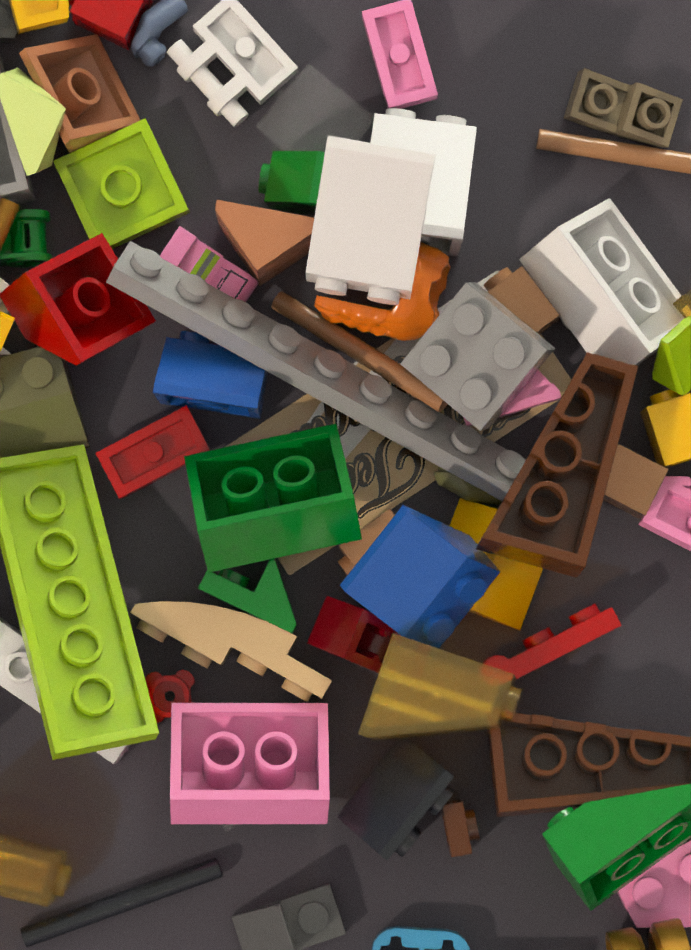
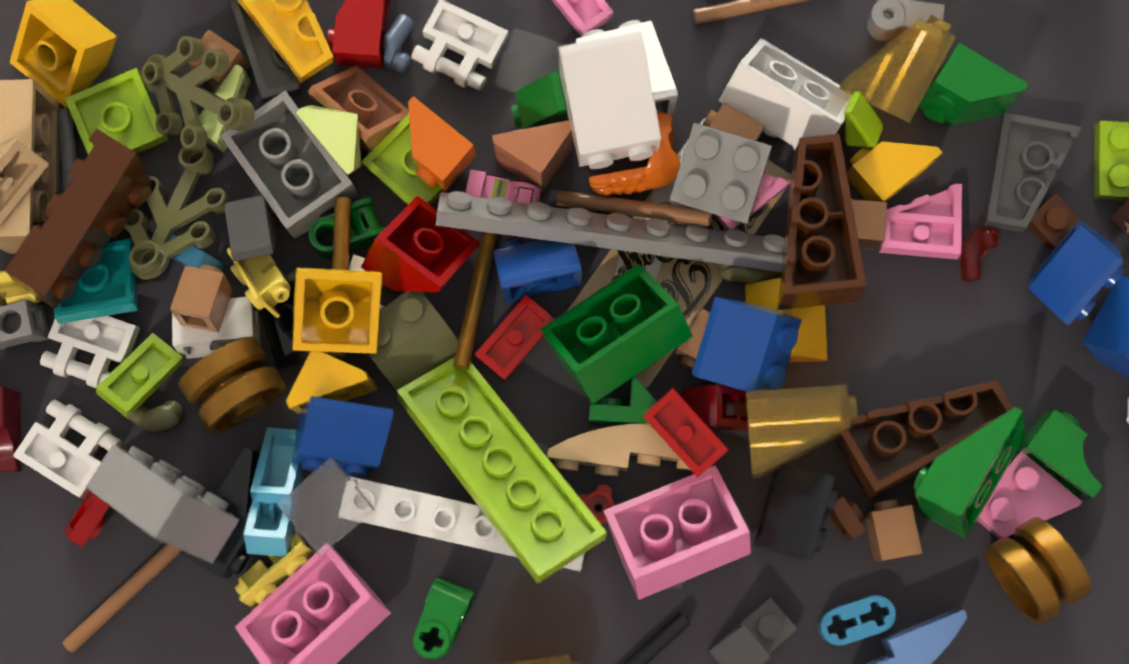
camera: 20 degrees left, 5 degrees down
(120, 391) = (475, 301): none -> pearl gold bar
(148, 182) = (437, 147): none -> orange slope
(304, 651) = (685, 432): none -> red plate
(507, 865) = (892, 531): none -> medium nougat brick
(546, 646) = (853, 363): red plate -> none

